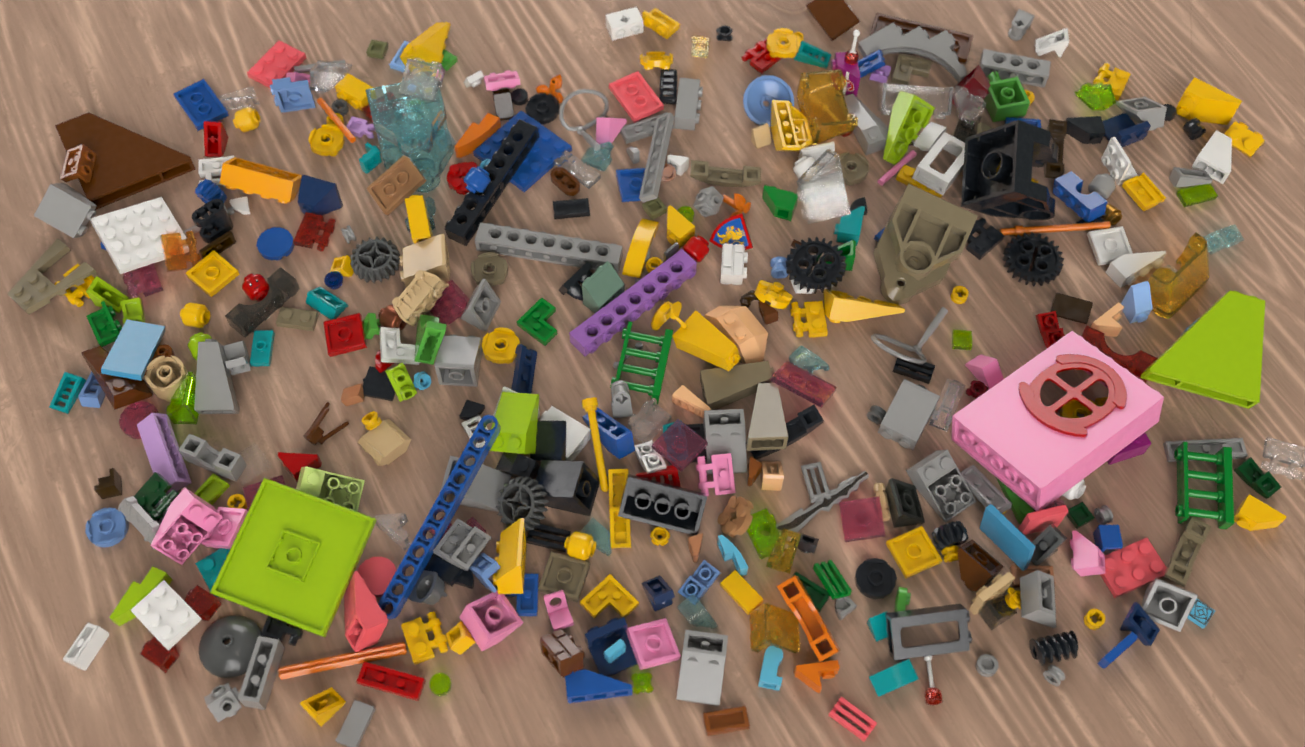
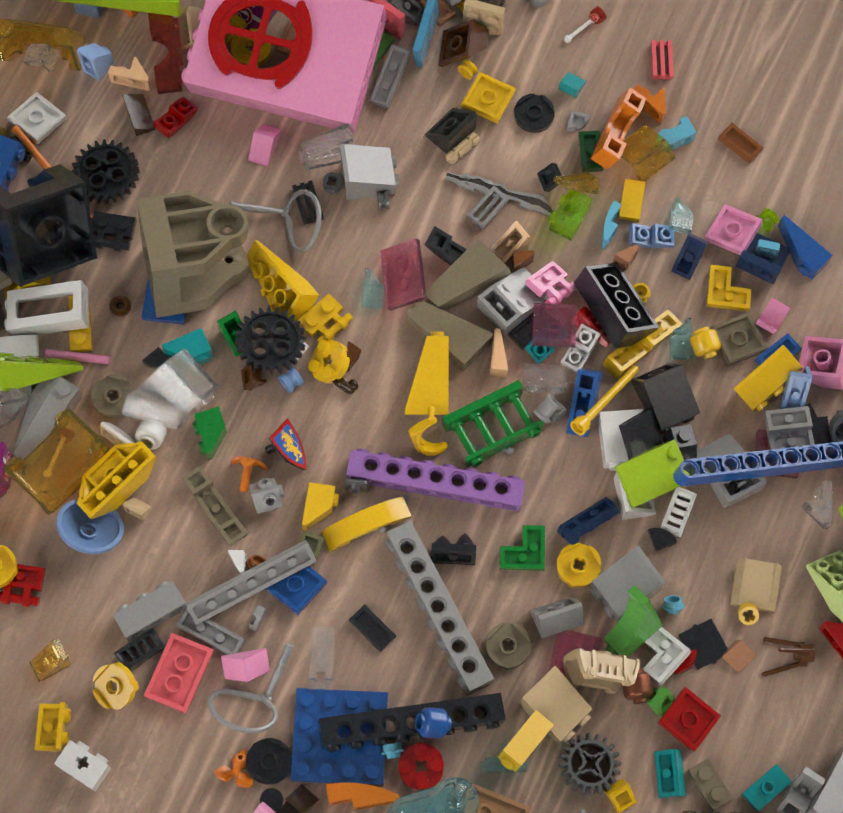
camera: 130 degrees left, 10 degrees up
(333, 280) = (642, 788): clear blue plate -> none
(401, 382) = (694, 615): lime hips -> none
(527, 492) = (715, 411): dark grey gear -> none
(548, 529) = (709, 363): black tile -> none
(562, 652) = (803, 284): reddish brown brick -> none
(568, 181) = (346, 658): reddish brown plate -> none
(599, 159) = (291, 636): clear light blue slope -> none
(601, 287) = (449, 516): sand green slope -> none
(654, 261) = (377, 489): yellow plate -> none
(687, 212) = (293, 512): clear neon green tile -> none
(697, 248) = (330, 468): red head -> none
(702, 667) = (718, 182): light grey slope -> none
(724, 33) = (9, 649): black plate -> none
(733, 264) = (320, 423): white brick -> none
(736, 516) = (584, 247): medium nougat plate -> none
(742, 329) = (388, 369): light nougat wedge -> none
(835, 579) = (563, 137): green tile -> none
(862, 519) = (492, 151): clear pink plate -> none
(893, 677) = (602, 45): teal slope -> none
(900, 619) = (554, 42): piece -> none
(902, 599) = (546, 78): bright green plate -> none
(941, 484) = (409, 113): light grey slope -> none
(950, 535) = (455, 75): black gear -> none
(961, 339) = (243, 182): clear neon green tile -> none
(976, 385) = (290, 134): dark red plate -> none
(1130, 266) = (54, 88): white slope -> none

